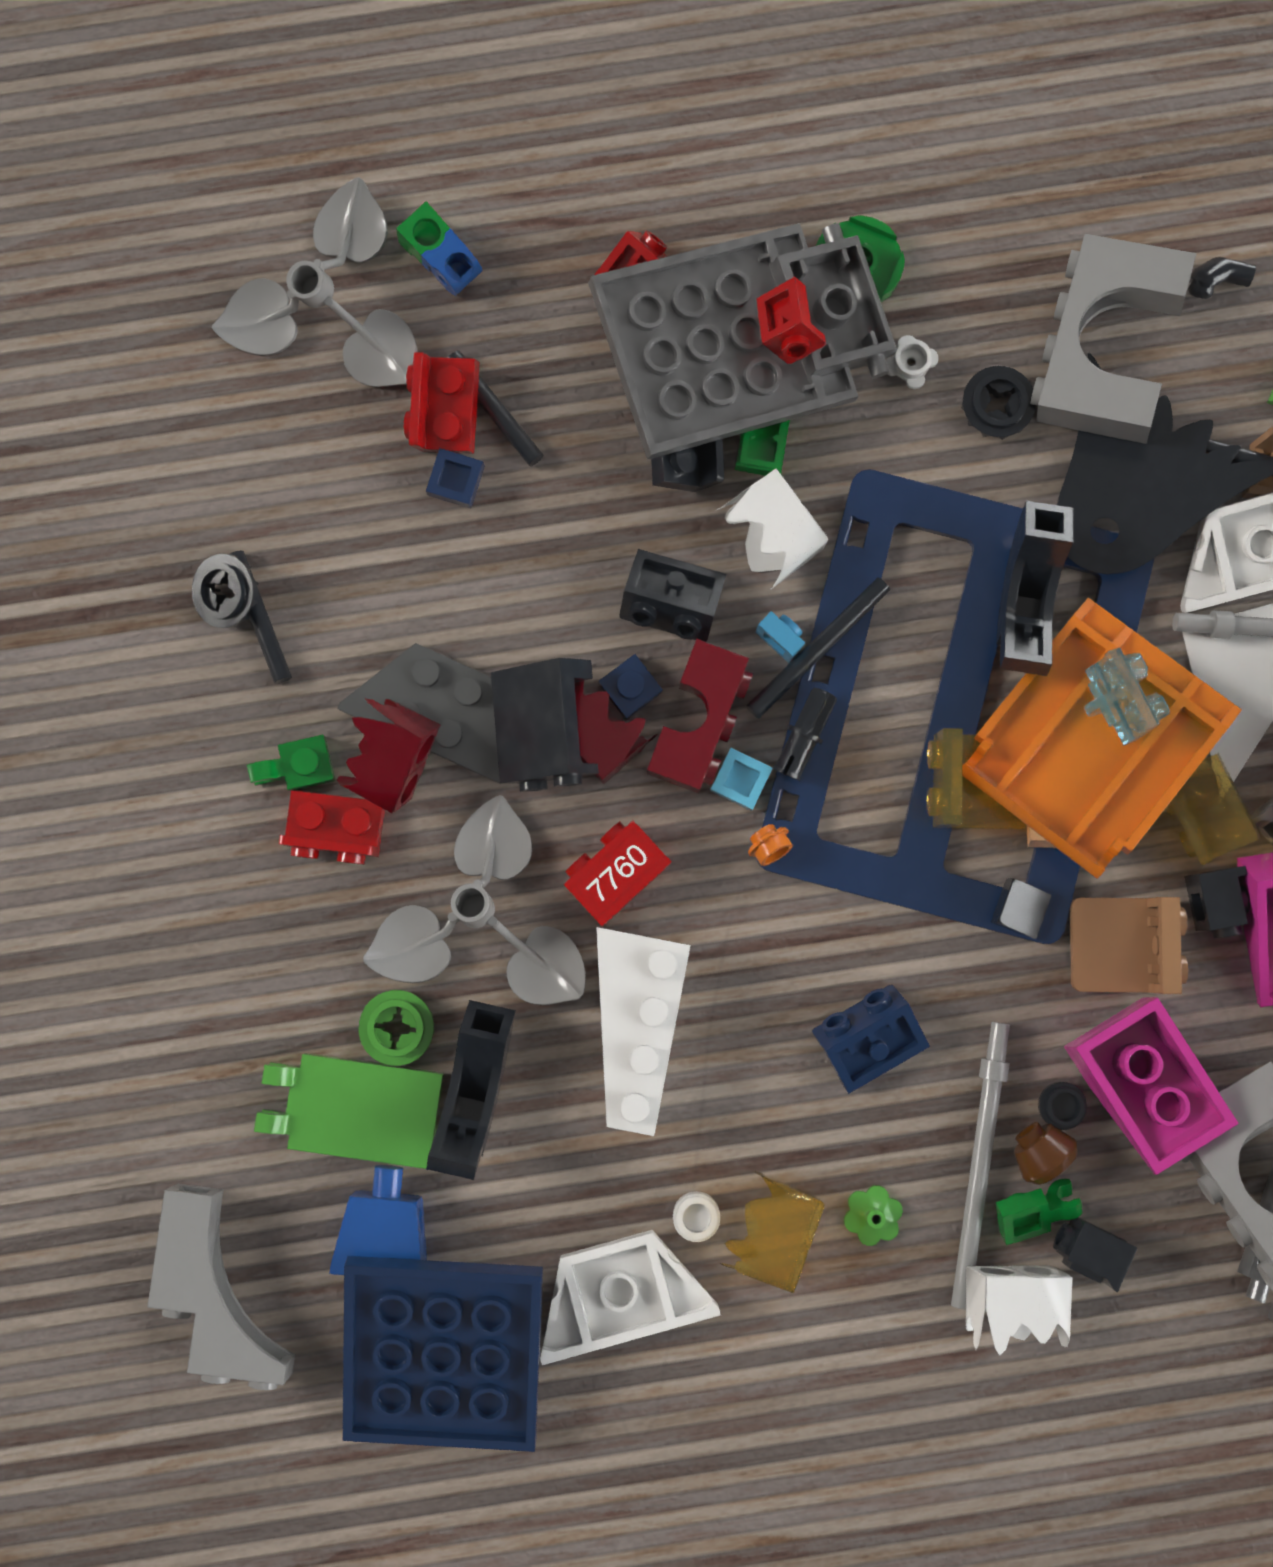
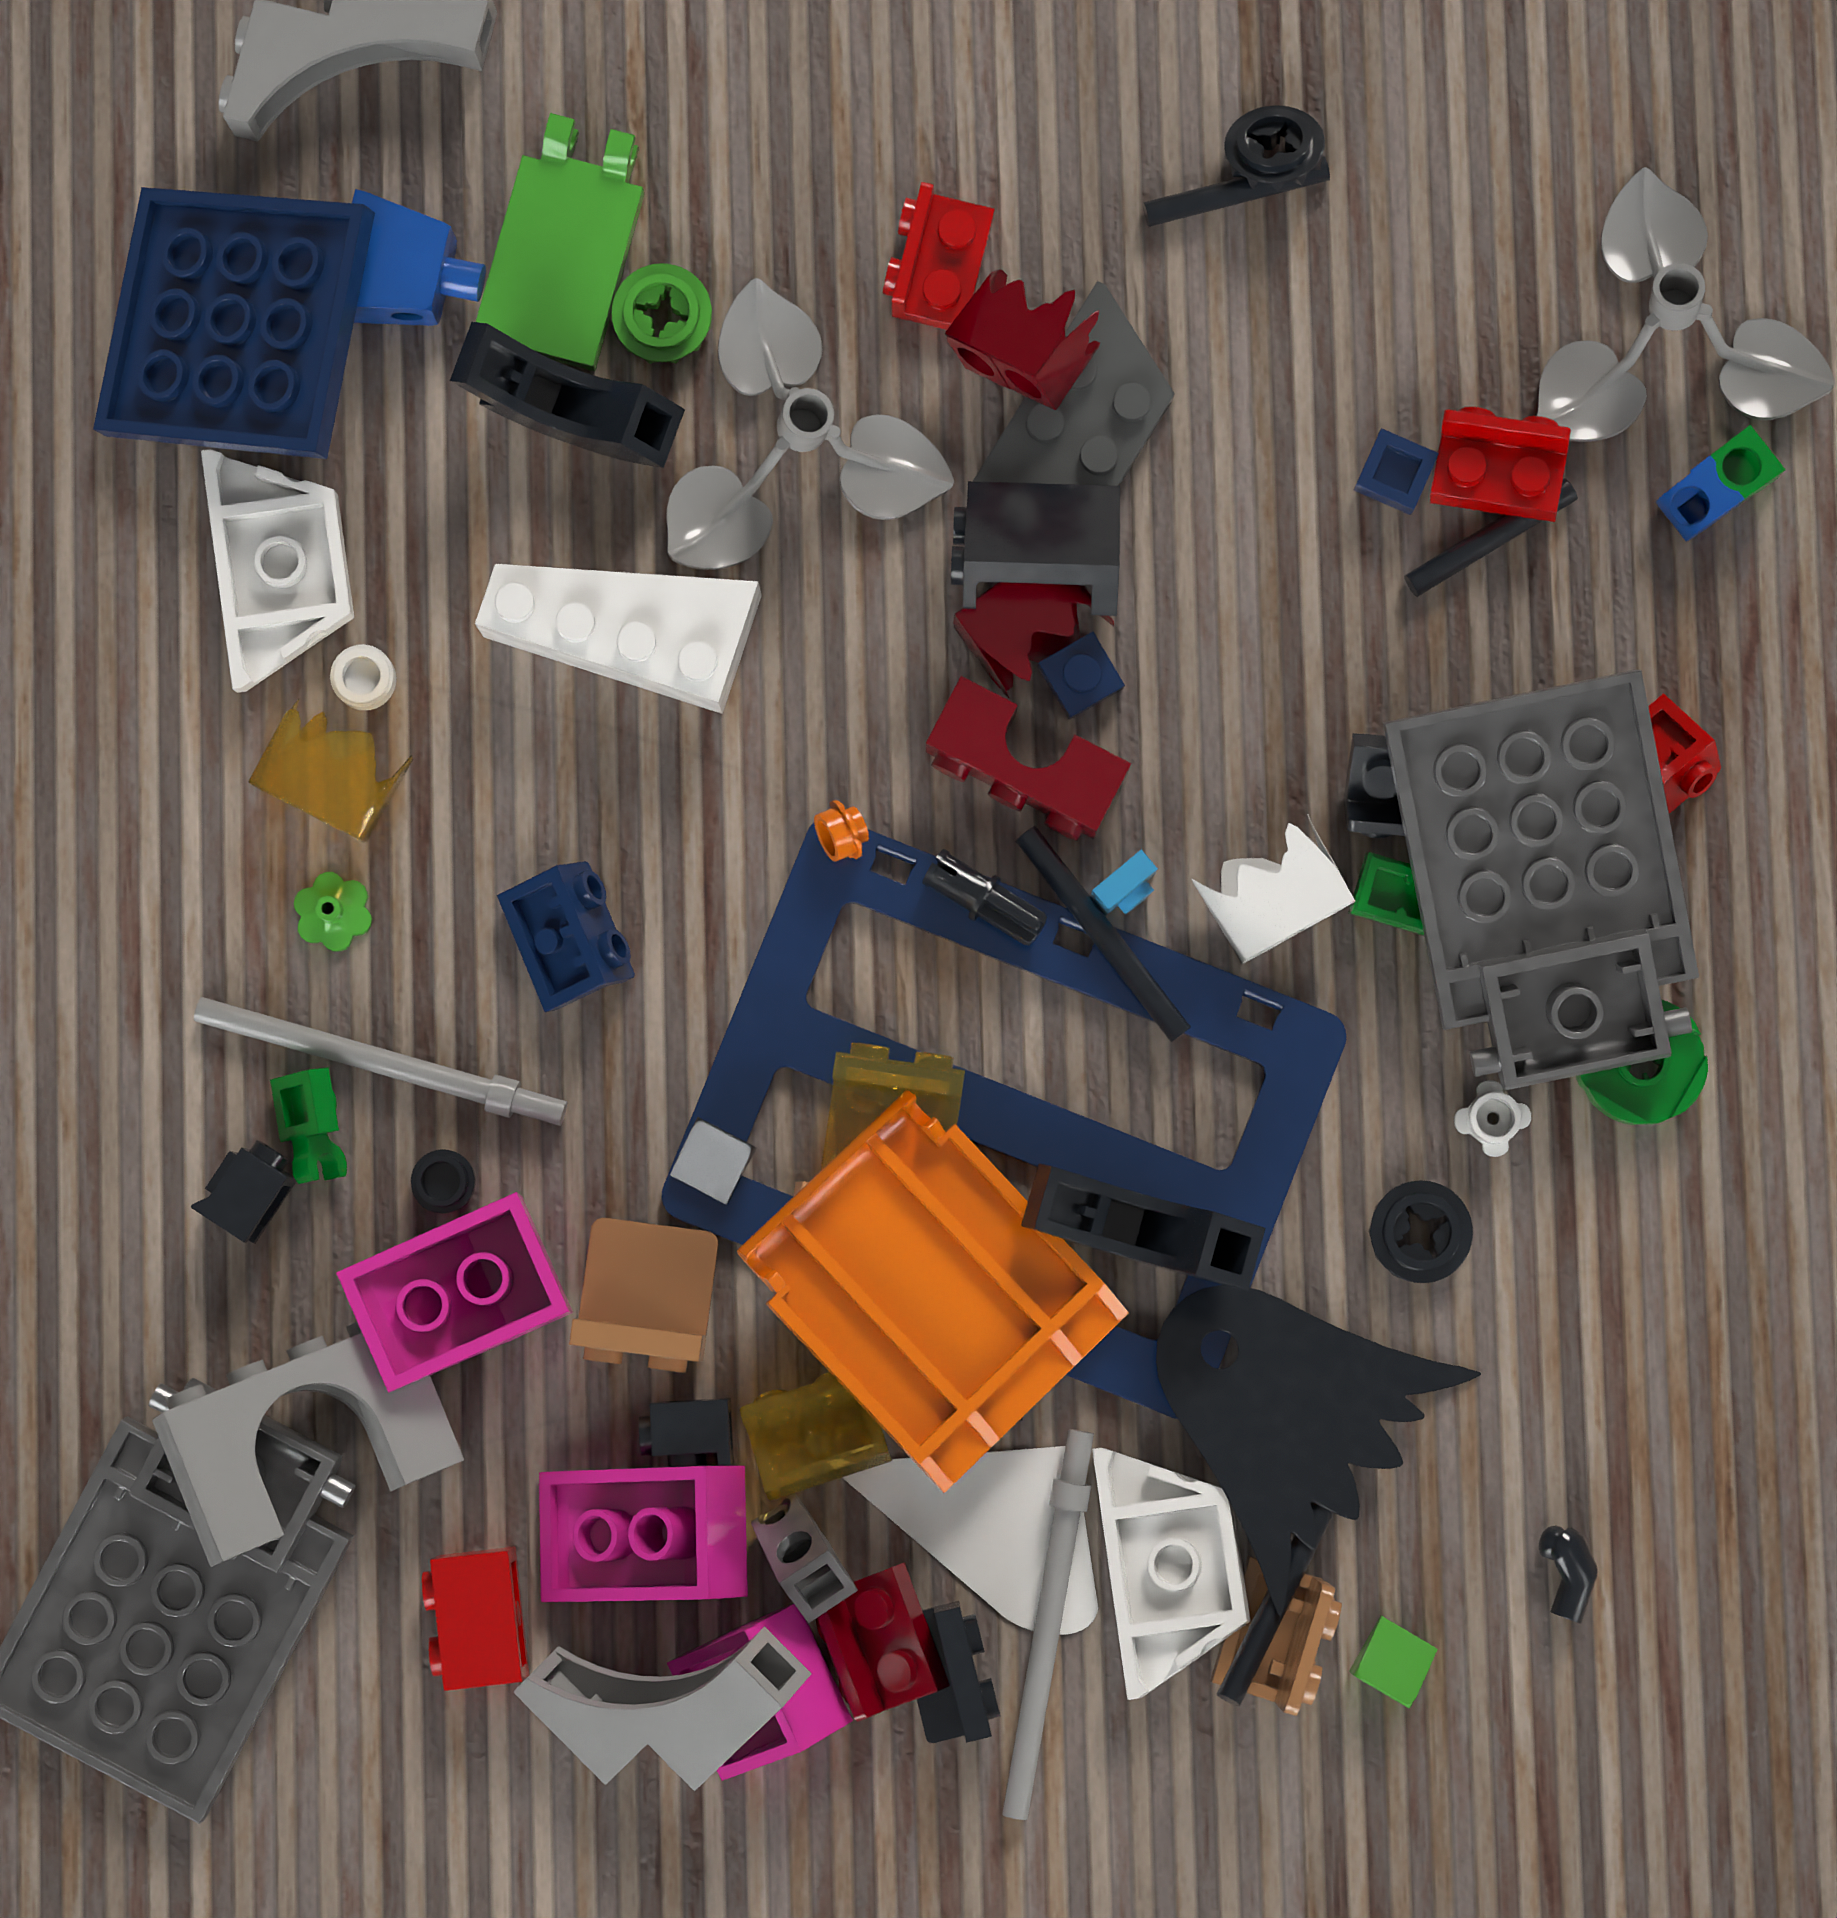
camera: 95 degrees right, 0 degrees up
(301, 764) = (1028, 226): green plate -> none
(616, 872) = (829, 622): red brick -> none
(671, 596) = (1199, 744): black bracket -> none
(741, 779) = (935, 806): medium azure plate -> none
(787, 322) = (1549, 928): red bracket -> none
(1018, 1303) = (197, 1078): white piece -> none
(1044, 1152) = (385, 1142): reddish brown cone -> none
(1105, 277) = (1579, 1393): light grey arch -> none
(1121, 698) = (977, 1312): clear light blue hips -> none

